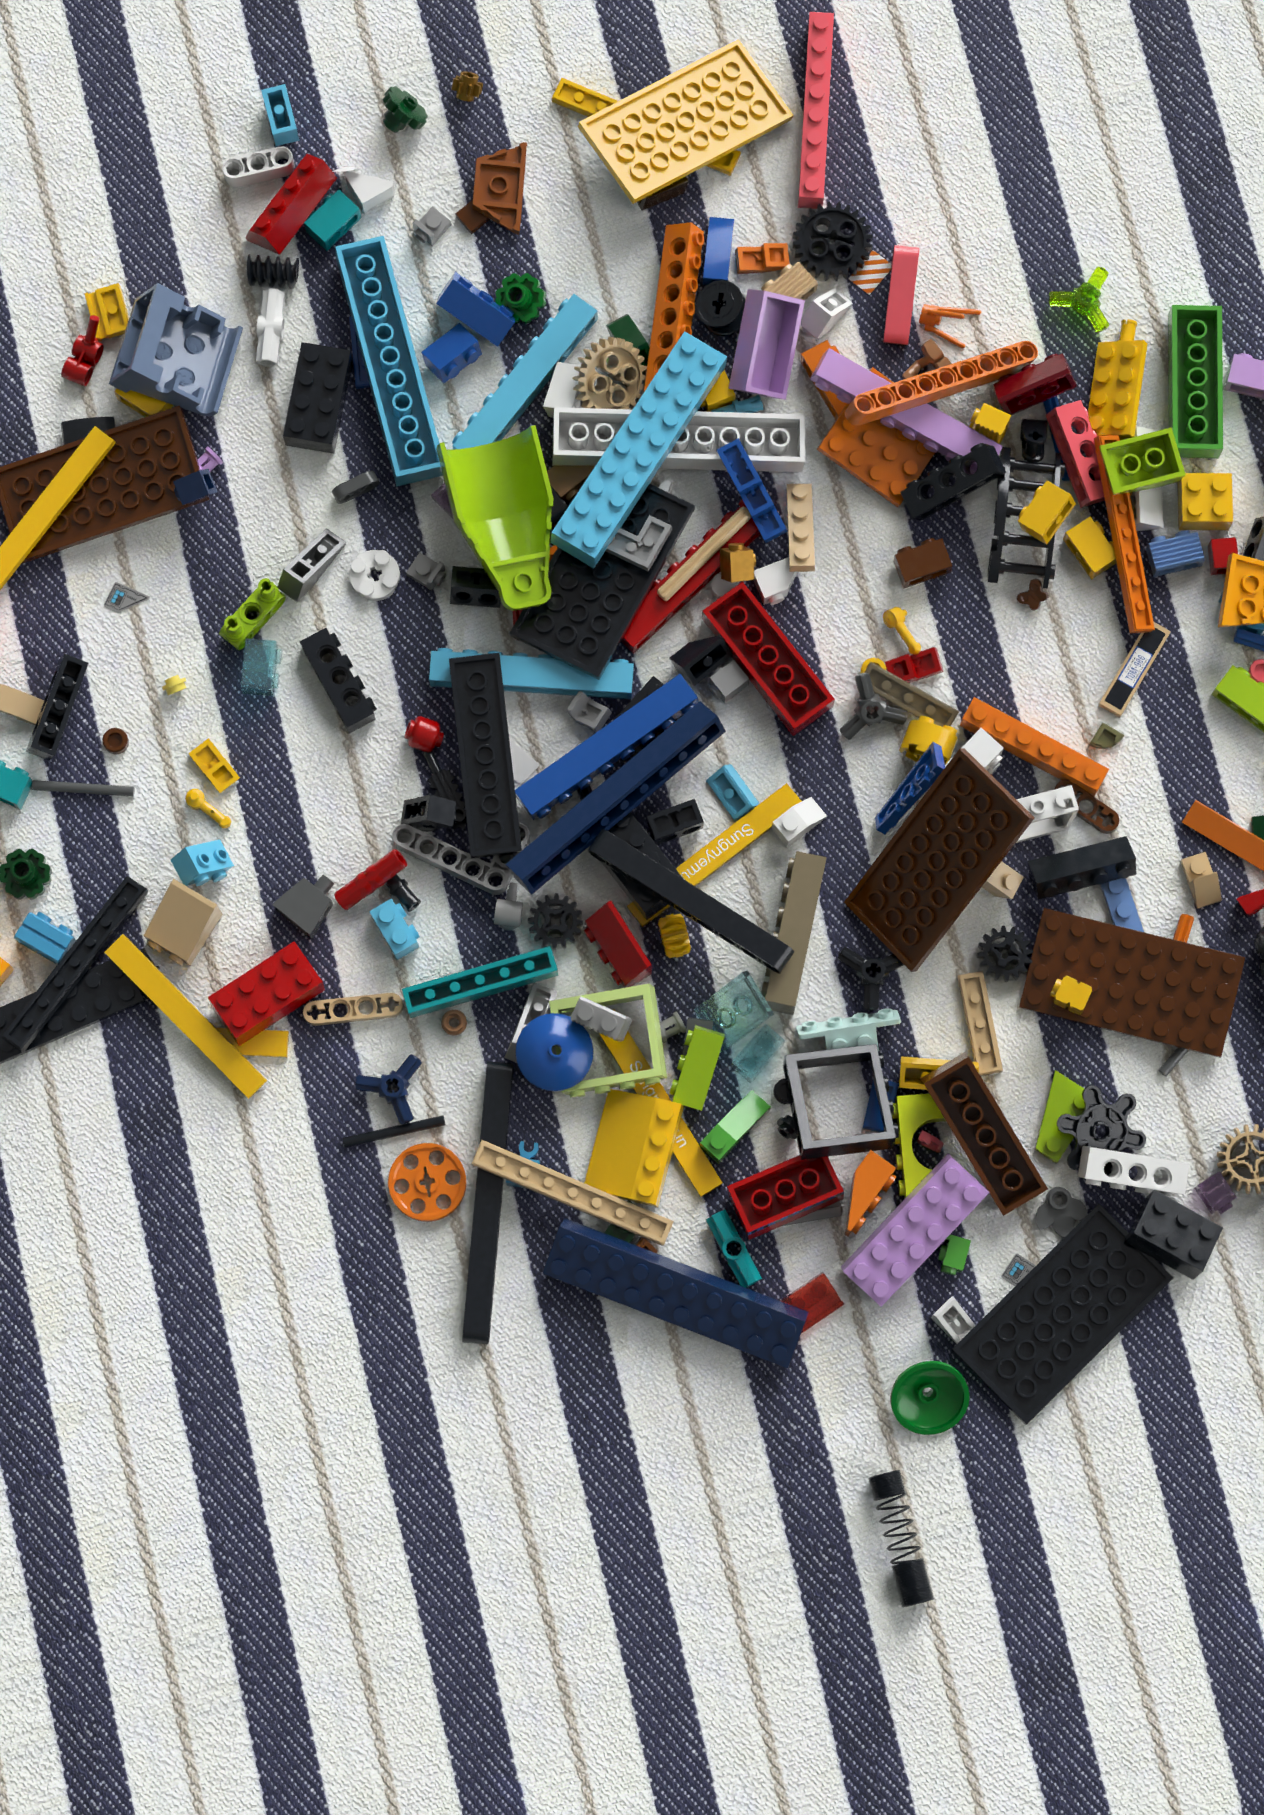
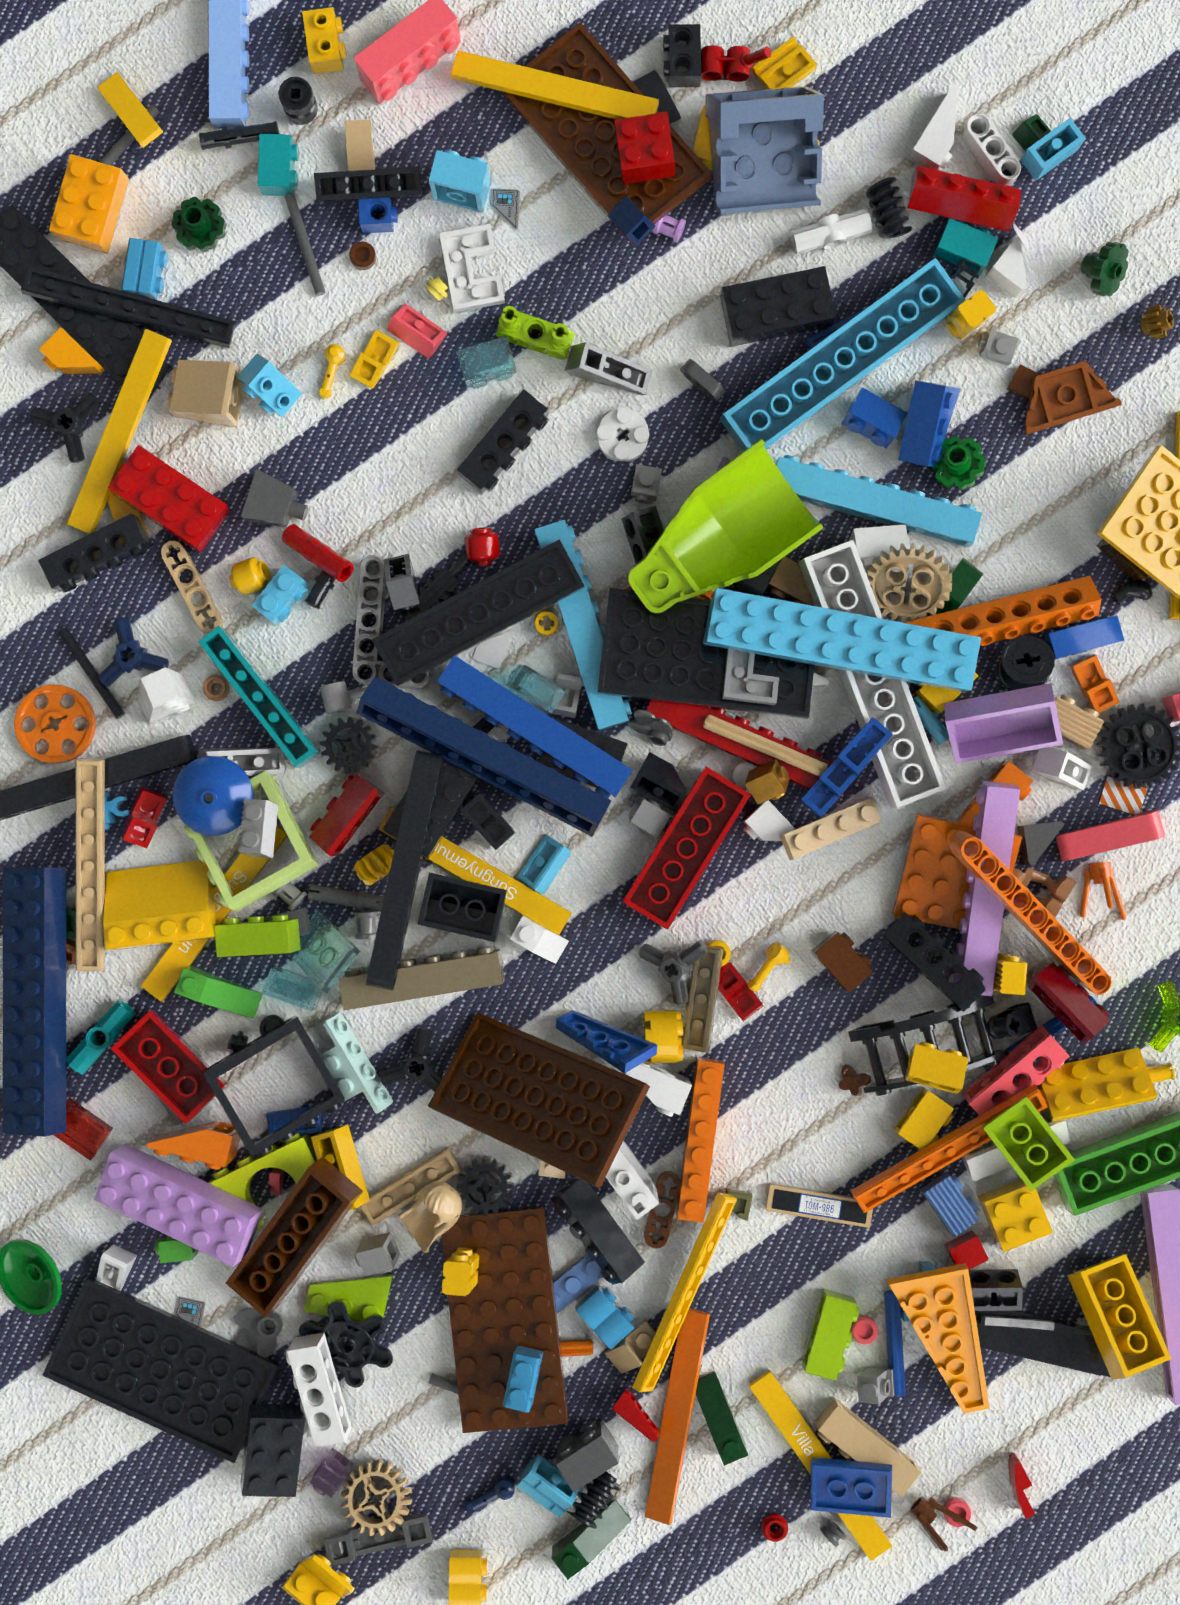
camera: 70 degrees right, 10 degrees up
(63, 388) = (683, 55): none -> black brick
(90, 624) = (460, 180): none -> medium azure brick
(90, 722) = (368, 207): none -> blue brick
(95, 1035) = (66, 354): none -> light orange slope
(134, 452) = (645, 148): none -> red brick
(151, 1053) = (59, 418): none -> black bush
(185, 662) = (464, 289): none -> white plate
(204, 719) = (416, 330): none -> coral slope
(225, 204) = (938, 137): none -> white slope
(256, 127) = (1030, 131): none -> dark green slope
(277, 1042) = (57, 563): none -> black brick
(350, 228) = (970, 283): none -> black piece
(365, 950) = (249, 576): none -> yellow head
(397, 237) = (970, 315): none -> yellow brick
(443, 1066) = (164, 694): none -> white wedge
(512, 700) = (552, 618): none -> yellow bush
(549, 1136) = (143, 817): none -> red slope
(570, 733) = (535, 687): none -> clear light blue brick
(651, 644) = (656, 729): none -> dark grey plate
(691, 194) = (1134, 588): none -> black arm
(693, 978) = (360, 900): none -> dark grey pin
(725, 968) = (366, 924): none -> light grey bush
(744, 872) = (462, 907): none -> black slope
(880, 357) = (1036, 839): none -> dark grey slope
(1011, 1008) = (433, 1213): none -> tan piece
(1029, 1072) = (377, 1254): none -> light grey brick
(1163, 892) = (605, 1316): none -> dark azure brick
(1167, 812) = (684, 1292): none -> yellow tile
(1188, 976) = (523, 1379): none -> dark azure brick

